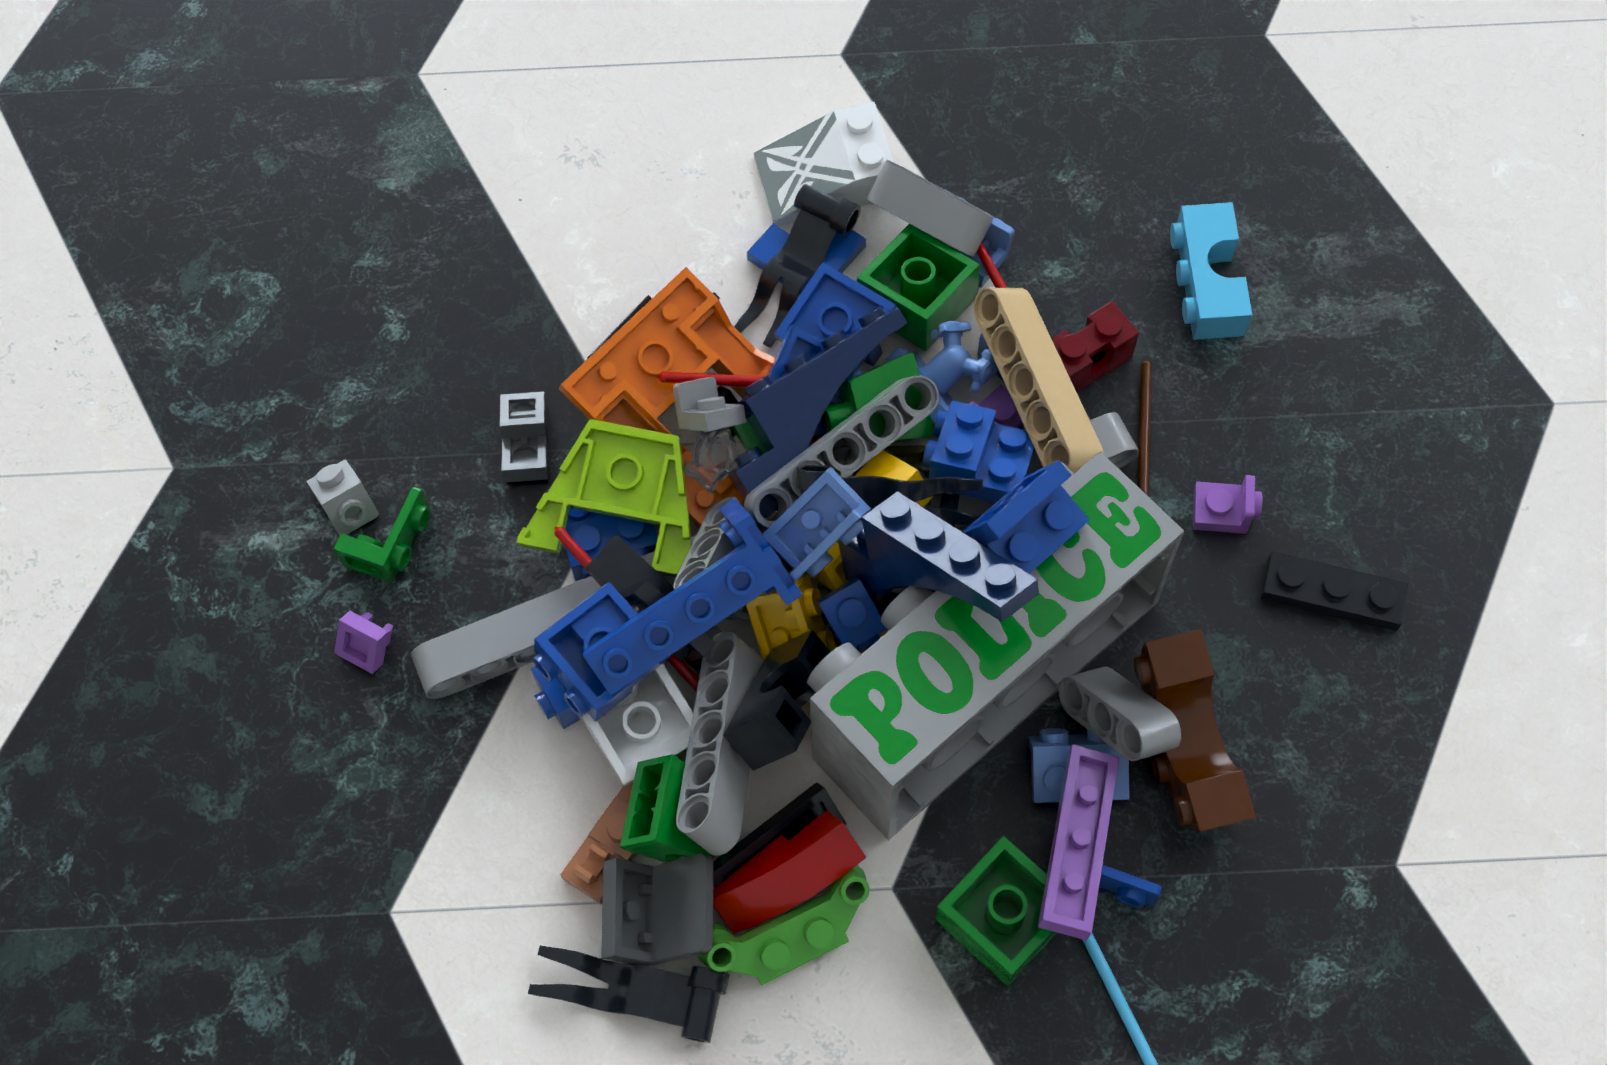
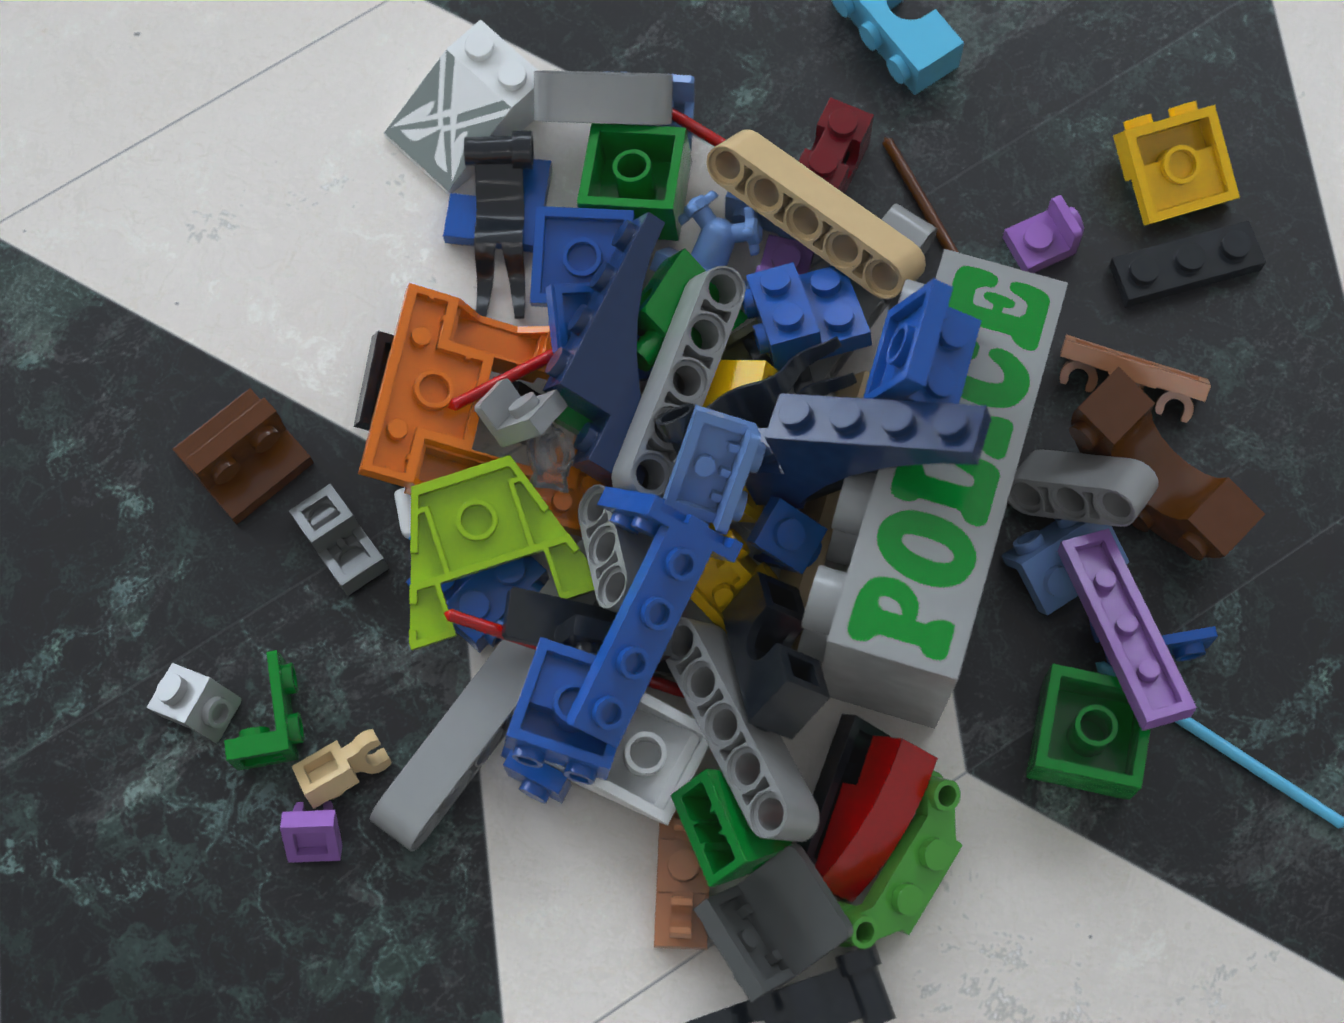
camera: 30 degrees left, 5 degrees up
(408, 603) = (334, 767): none -> tan plate
(493, 337) = (243, 455): none -> reddish brown bracket
(1230, 652) = (1143, 372): none -> nougat plate
(1374, 503) = (1176, 162): none -> yellow plate

